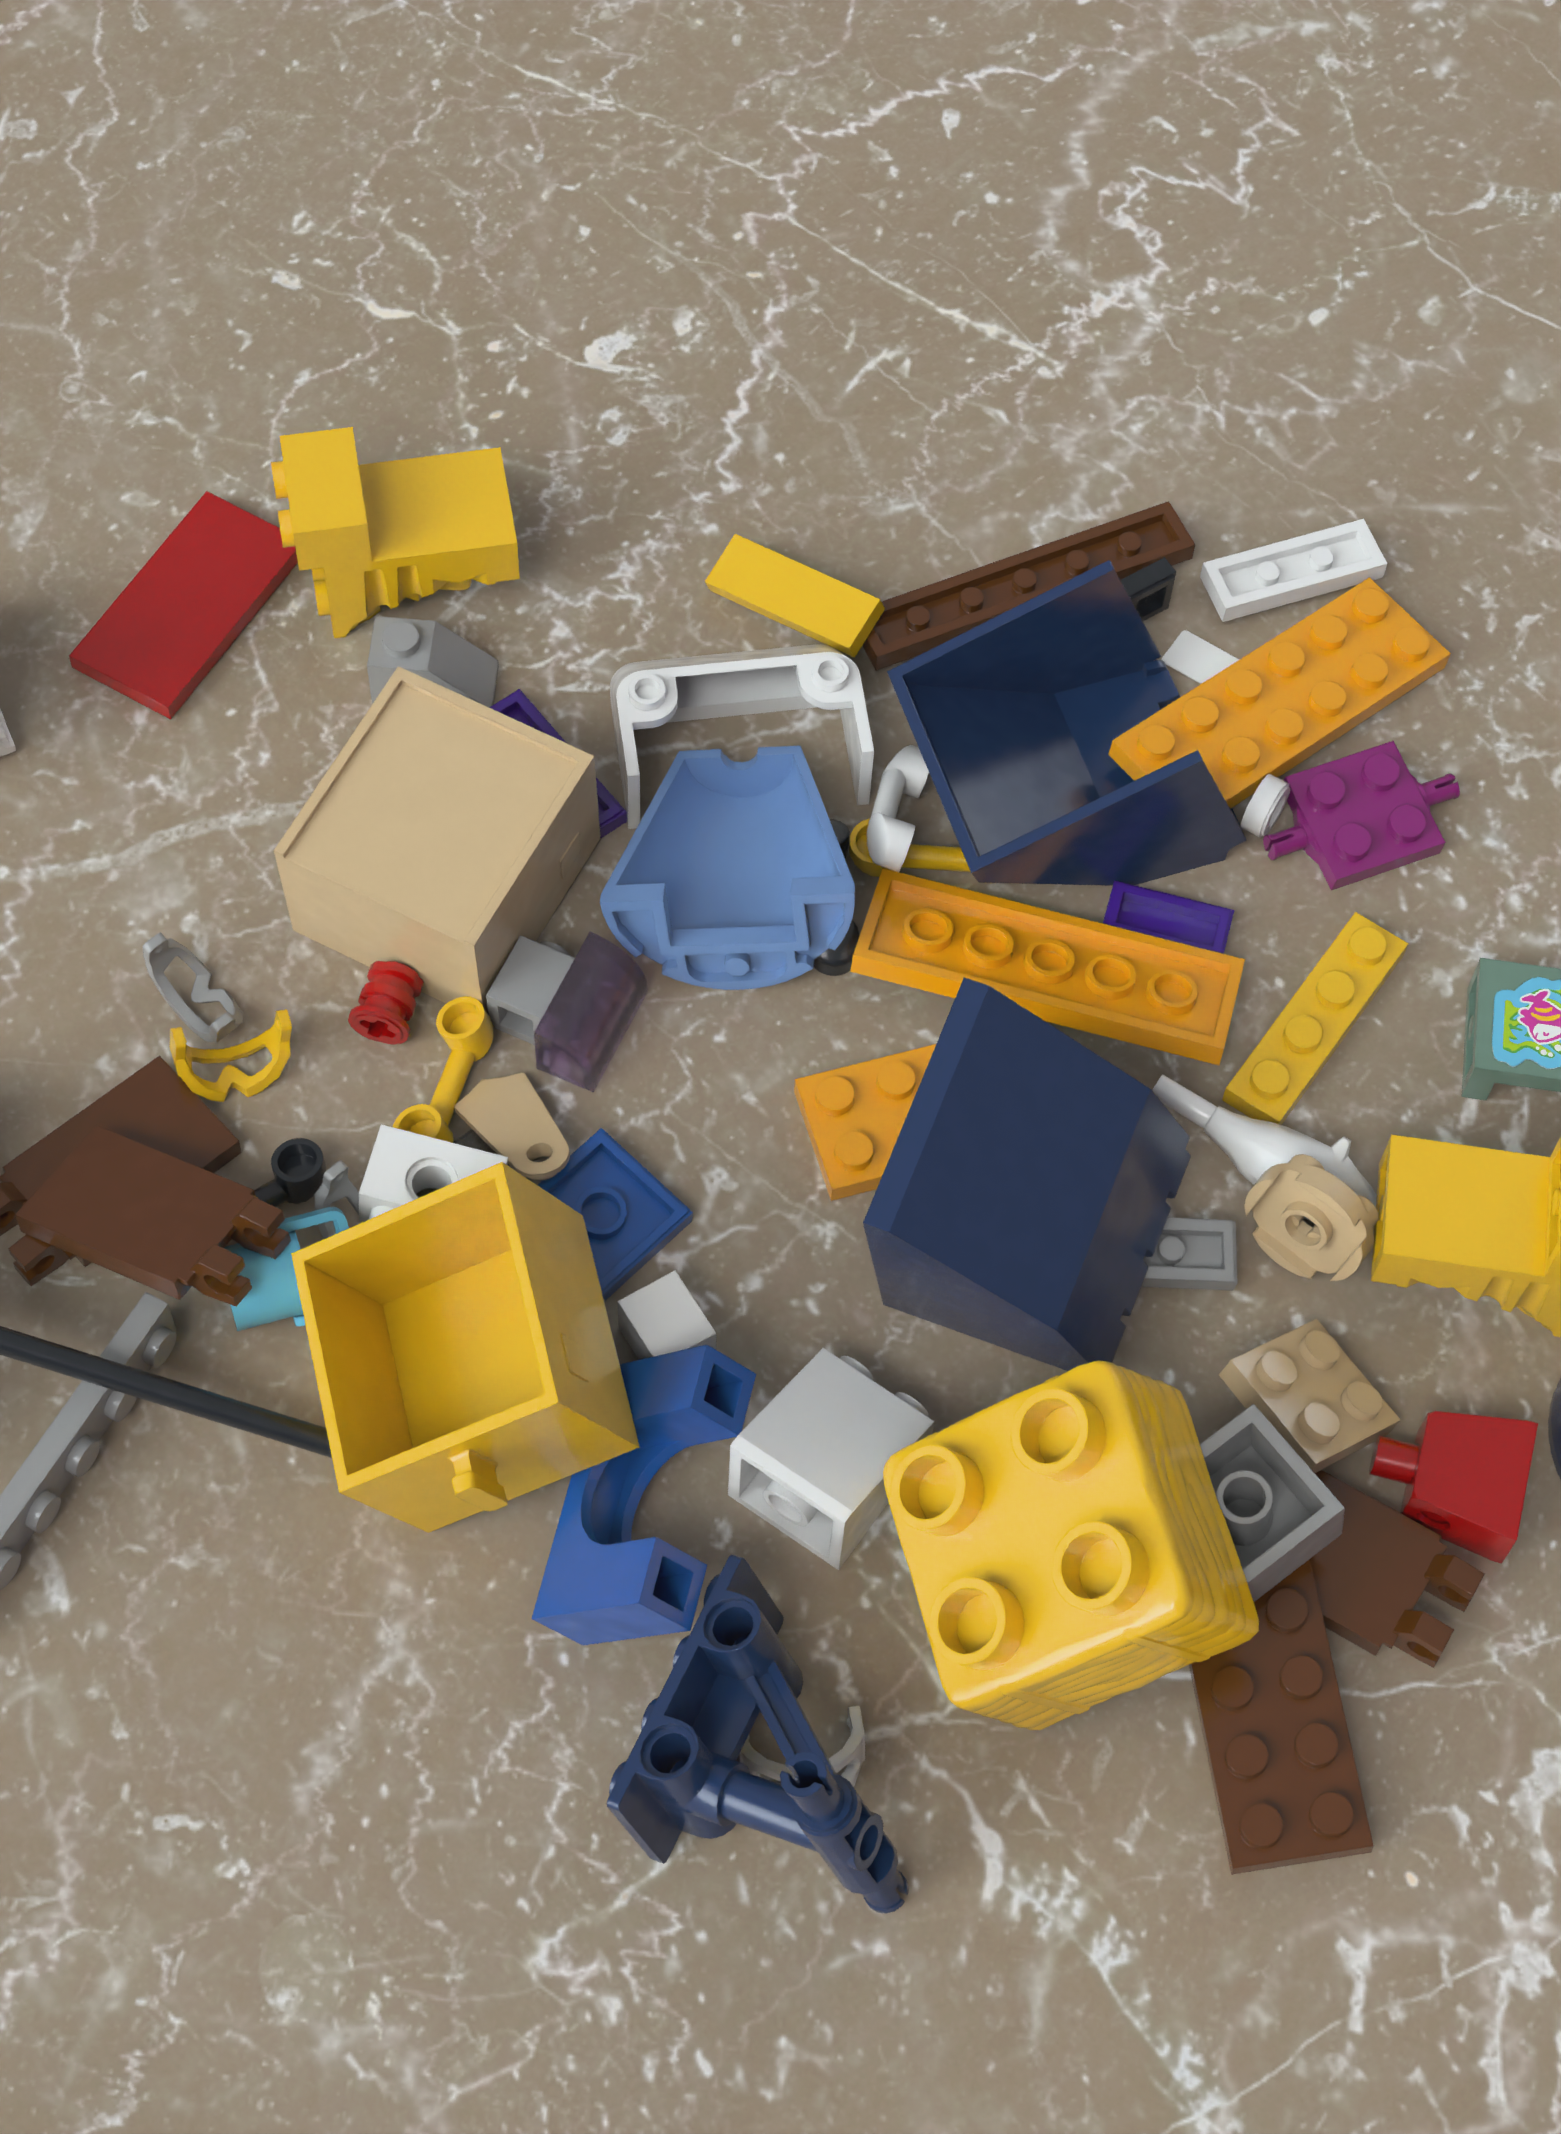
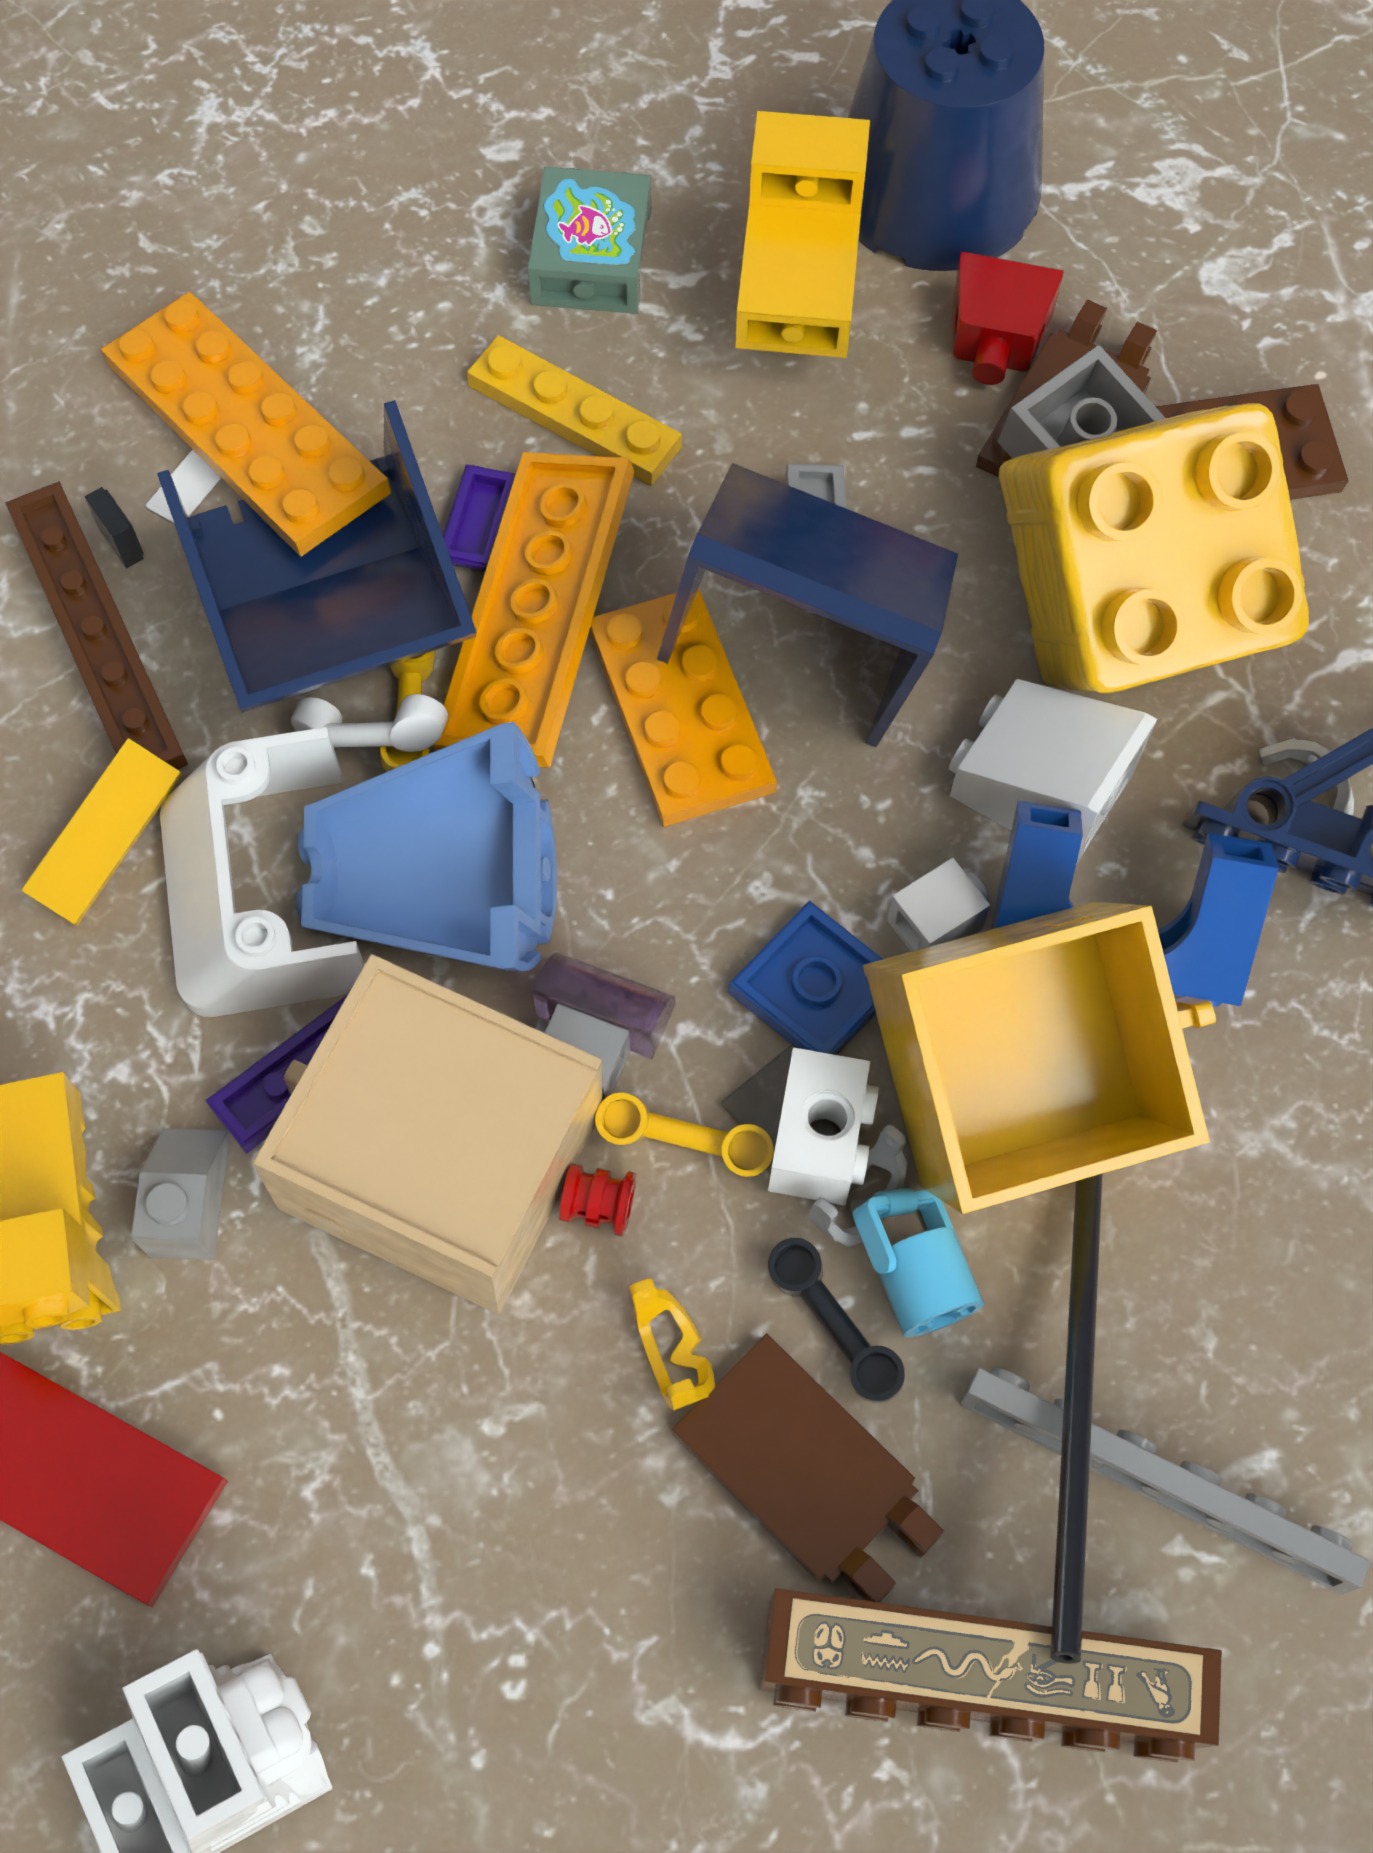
camera: 90 degrees left, 5 degrees up
(152, 1218) = (892, 1393): reddish brown tile -> none
(158, 955) = (638, 1365): light grey helmet -> none
(515, 1125) = (730, 1063): tan piece -> none
(1260, 1144) = (724, 430): white piece -> none
(1265, 806) = (360, 431): white tile -> none
(1293, 570) = (89, 409): white plate -> none
(1311, 1395) = (944, 414): tan plate -> none
(1341, 1219) = (791, 397): tan plate -> none
(1362, 815) = (360, 363): magenta plate -> none

